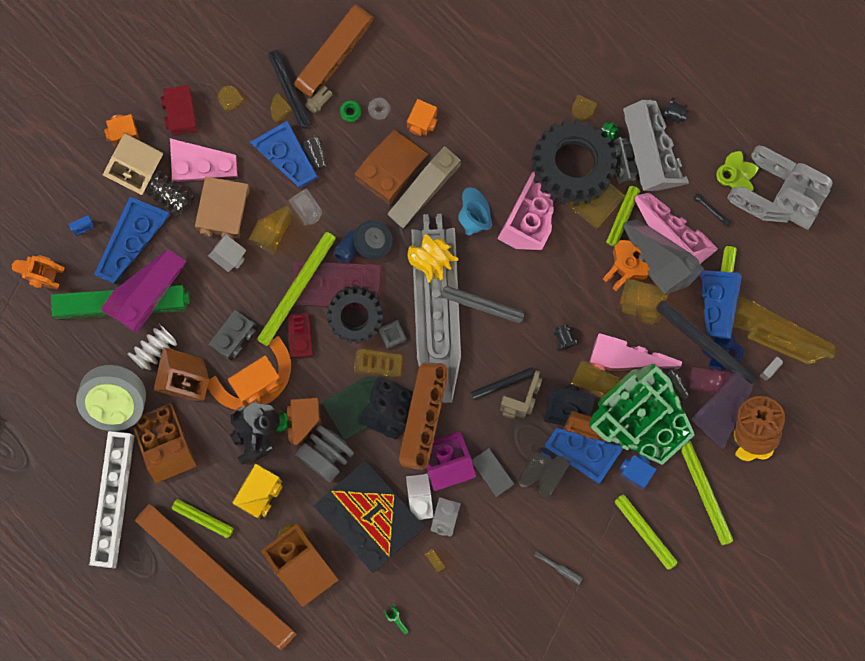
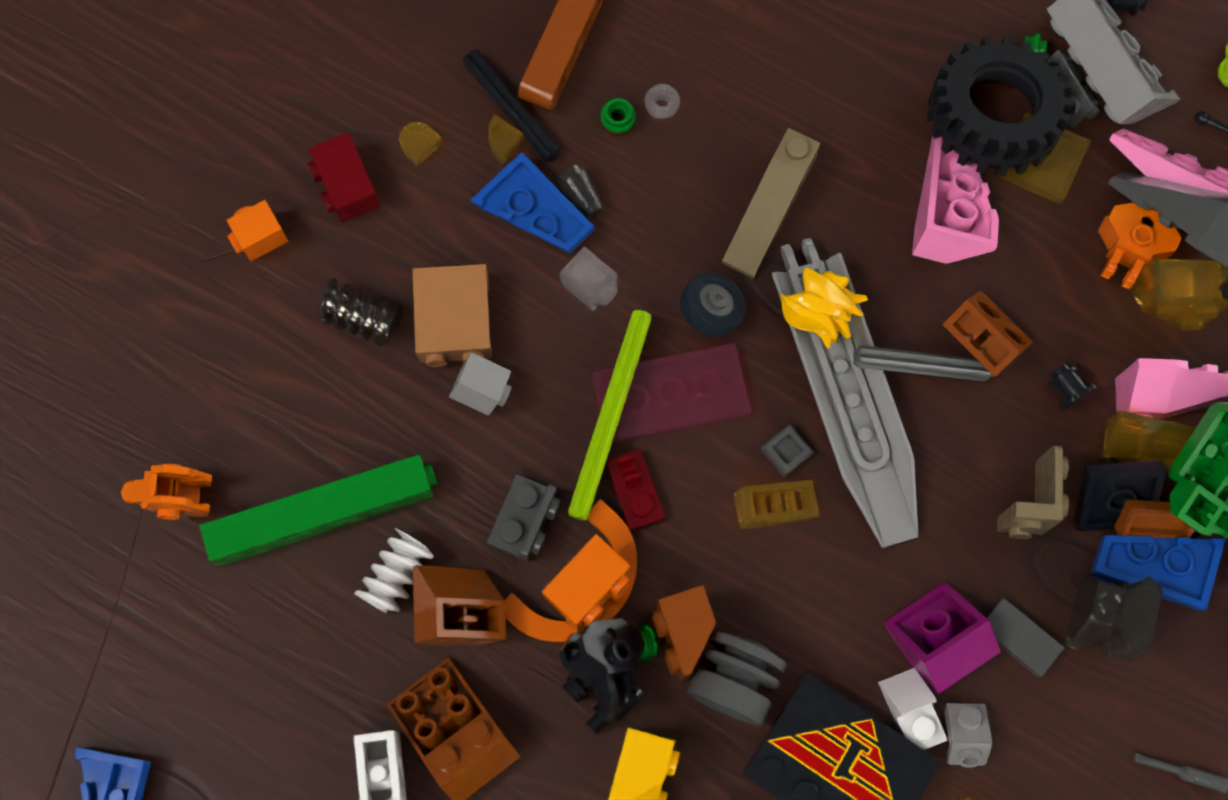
camera: 15 degrees left, 5 degrees down
(81, 225) = (225, 399): blue tile -> none
(111, 398) = (344, 676): wheel -> none
(133, 163) = (287, 277): tan slope -> none
(133, 232) = (311, 397): blue wing -> none
(139, 295) = (352, 487): magenta wedge -> none
(195, 162) = (389, 253): bright pink wing -> none
(271, 229) = (543, 326): clear yellow slope -> none
(318, 100) = (558, 116): dark tan pin -> none
(345, 249) = (673, 330): dark blue cone -> none
(347, 406) = (764, 584): clear green tile -> none
(351, 332) = (747, 448): black tyre -> none
(387, 408) = (822, 575): black bracket -> none
(390, 166) = (706, 186): dark orange slope -> none
(422, 118) = (736, 98): orange brick -> none
(423, 415) = (886, 571): dark orange beam -> none
(475, 212) = (863, 224): dark azure piece -> none
(502, 383) = (990, 485): black bar -> none
(525, 296) = (987, 333): none -> dark orange brick
(583, 108) = (979, 24): clear yellow tile -> none
(623, 216) = (1097, 173): lime axle -> none

